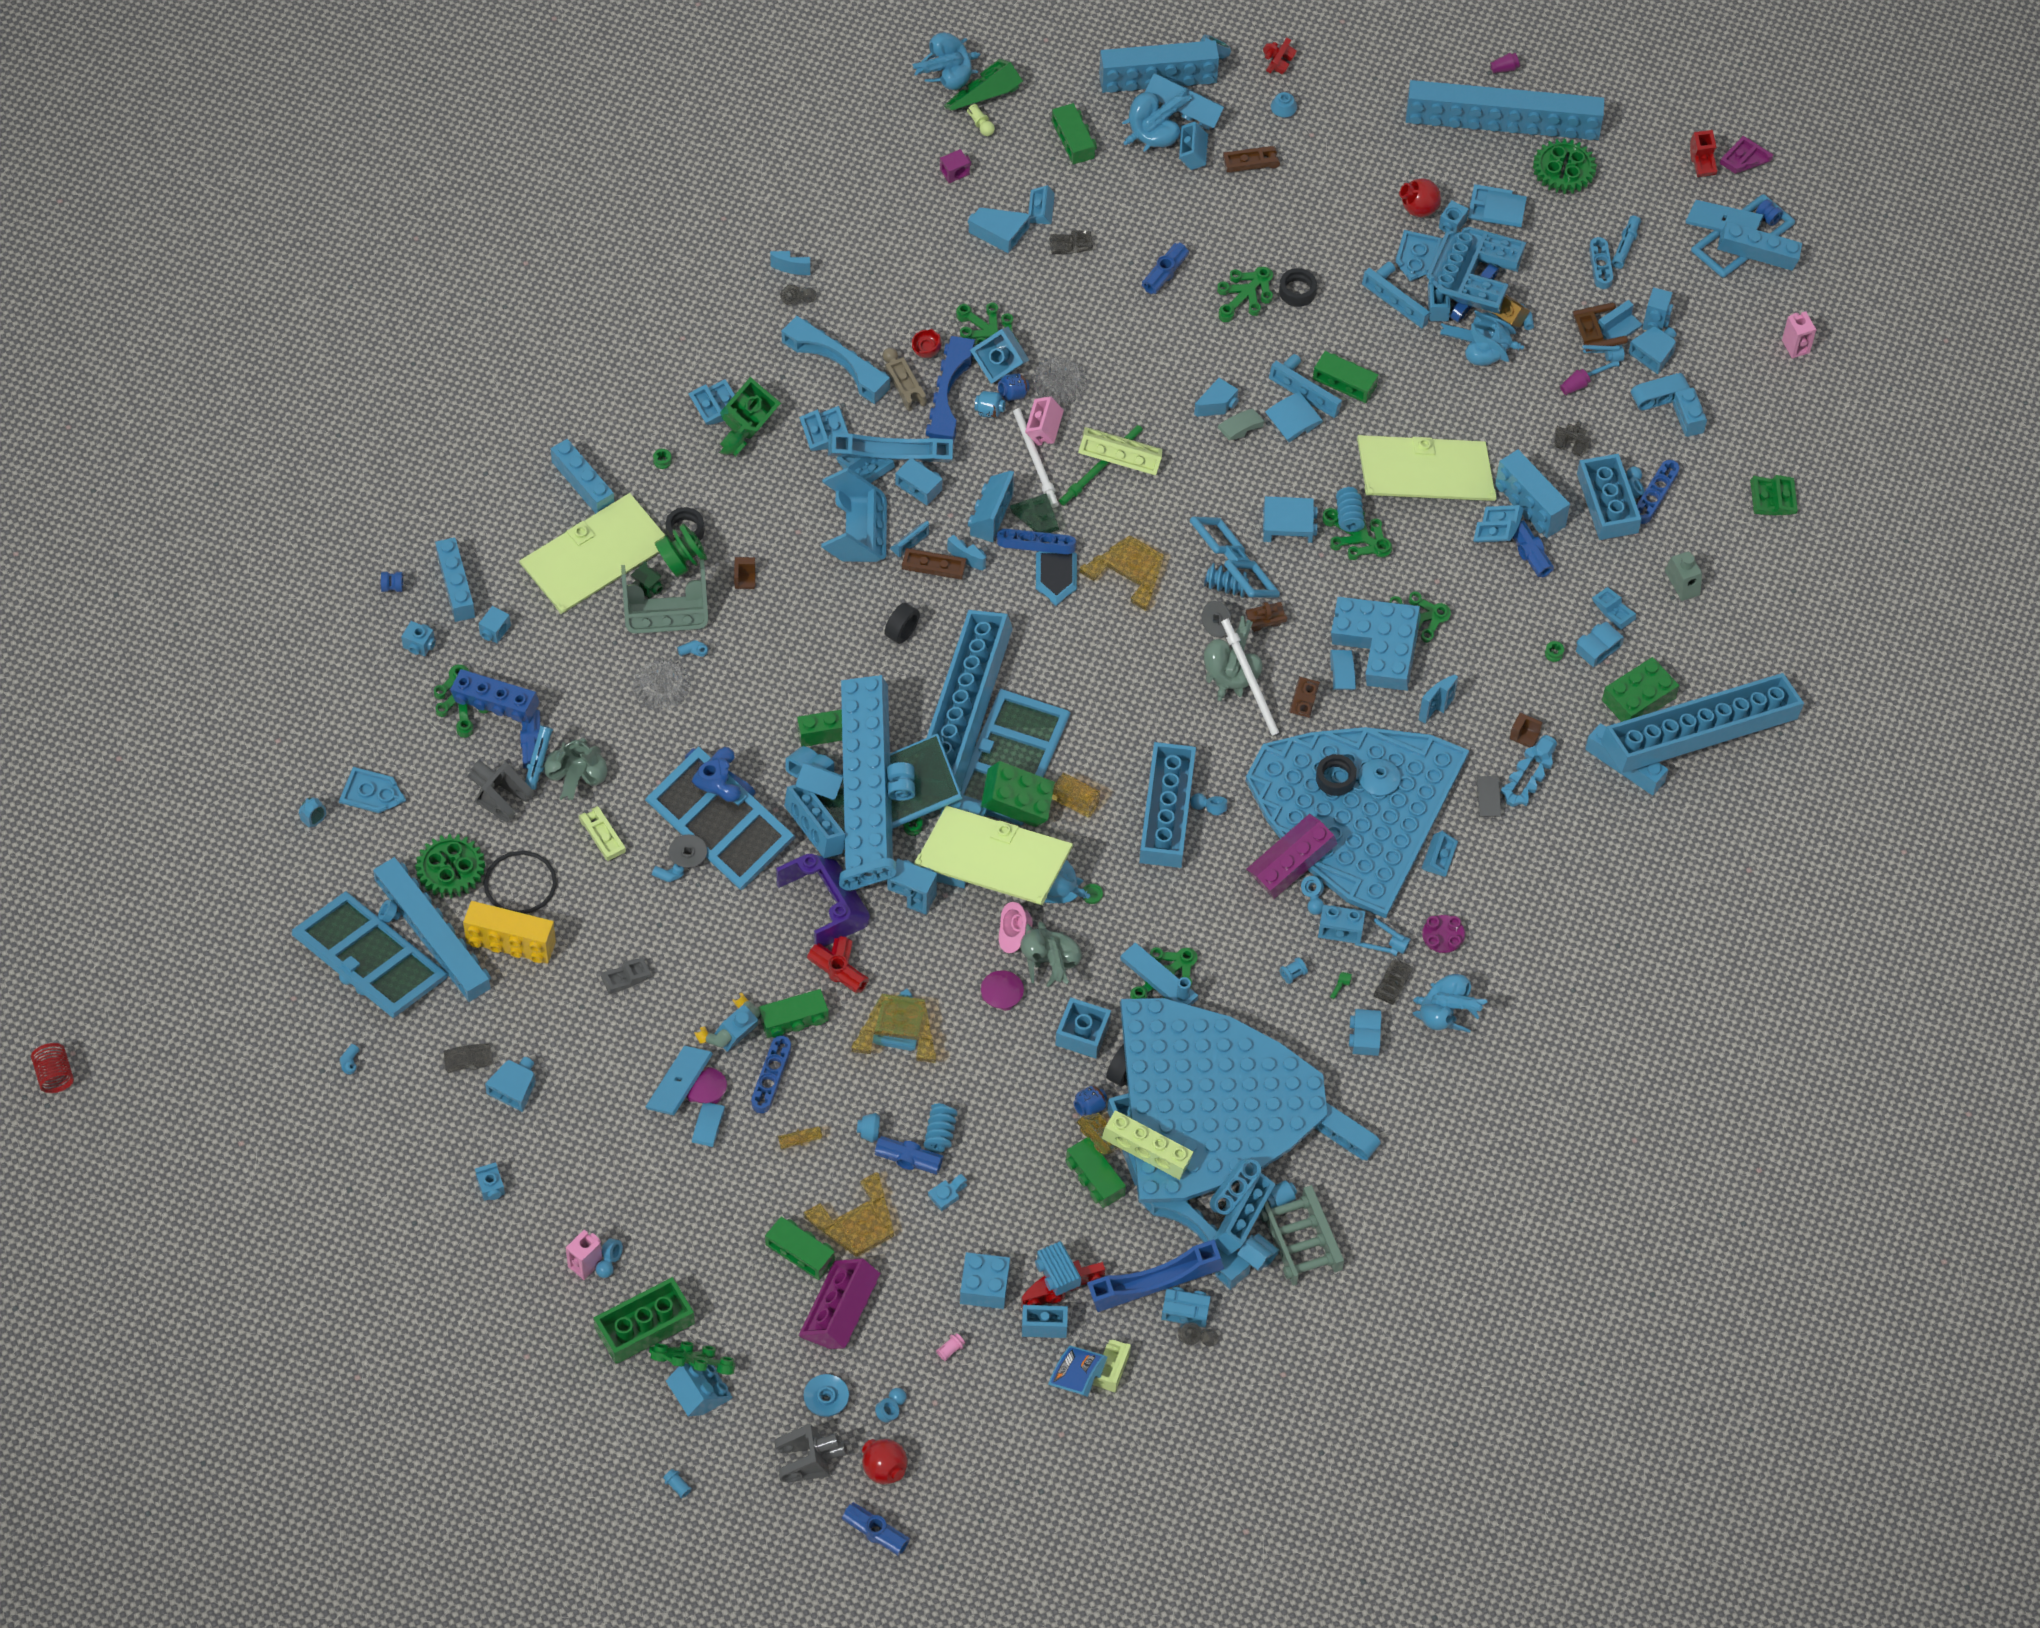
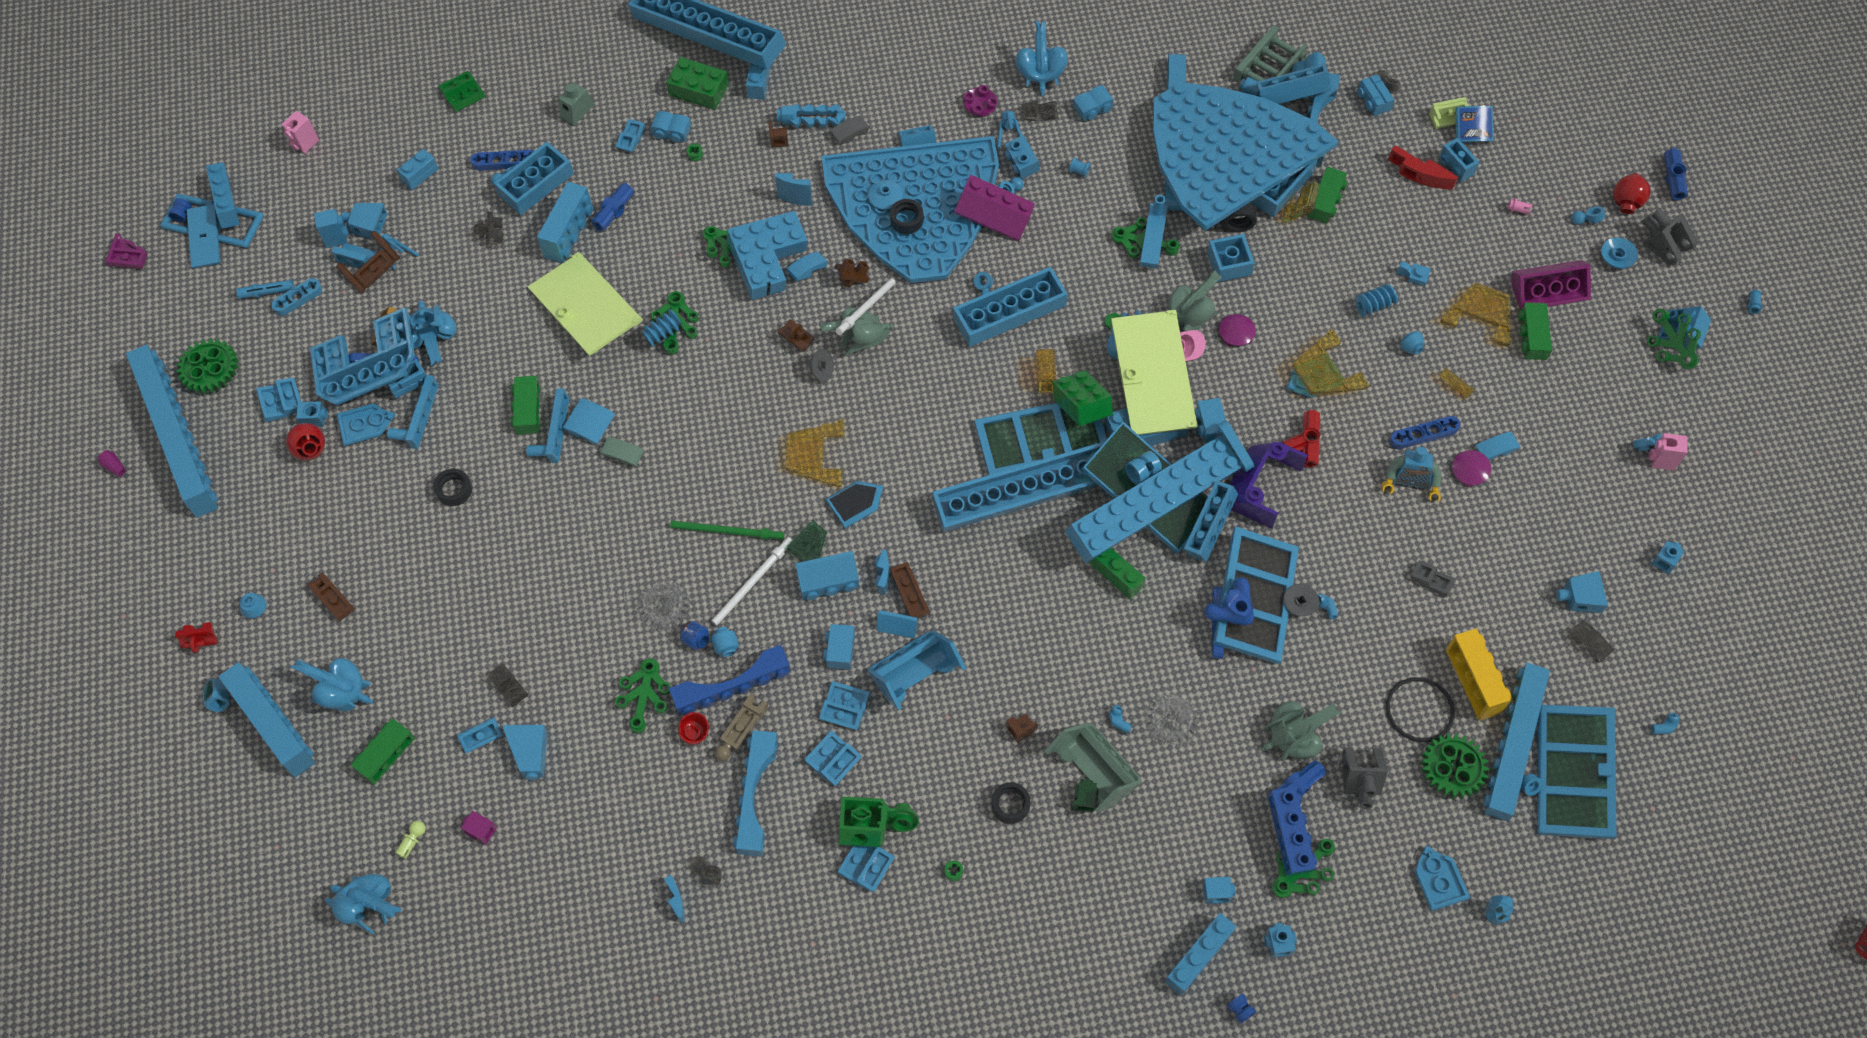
camera: 120 degrees left, 5 degrees up
(544, 733) = (1323, 756): dark azure pin -> none
(581, 476) = (1023, 920): dark azure brick -> none
(593, 552) = (1086, 860): yellowish green door -> none
(602, 833) = (1334, 674): yellowish green plate -> none
(644, 1320) = (1675, 386): green brick -> none
(671, 1092) = (1499, 485): dark azure piece -> none
(681, 550) = (1045, 778): green wheel -> none
(794, 1013) = (1369, 444): green brick -> none
(804, 754) = (1163, 559): dark azure brick -> none
(819, 781) = (1180, 534): dark azure slope -> none
(890, 448) = (848, 709): dark azure arch -> none
(902, 623) = (987, 572): black tyre -> none
(908, 1155) = (1411, 308): blue piece -> none
(984, 1280) = (1460, 211): dark azure brick -> none
(994, 81) = (361, 854): green wedge -> none
(999, 354) = (671, 659): dark azure slope -> none
(1015, 539) = (838, 528): blue beam -> none
(1044, 420) = (716, 588): bright pink brick -> none
(1058, 1268) = (1424, 162): dark azure brick -> none
(1090, 1101) = (1279, 225): blue head -> none
(1120, 451) = (711, 514): yellowish green fence -> none
(1120, 1289) = (1351, 92): blue arch -> none
(1147, 1145) = (1305, 145): yellowish green brick -> none
(1165, 268) = (482, 593): blue piece -> none
(1193, 146) = (344, 643): dark azure brick -> none
(1198, 108) = (297, 686): dark azure brick -> none
(1217, 399) = (608, 481): dark azure slope -> none
(1224, 579) = (781, 379): dark azure piece -> none
(1236, 557) = (756, 382): dark azure bar -> none
(1245, 1182) = (1282, 95): dark azure beam -> none
(1261, 276) = (480, 521): green plant -> none
(1289, 517) = (694, 370): dark azure panel -> none
(1344, 979) = (1061, 139): green hand -> none
(1498, 523) = (606, 232): dark azure slope -> none
(1504, 208) = (281, 380): dark azure slope -> none
(1575, 382) = (432, 254): magenta cone -> none
(1658, 391) = (407, 197): dark azure beam -> none
(1702, 153) = (141, 277): red brick -> none

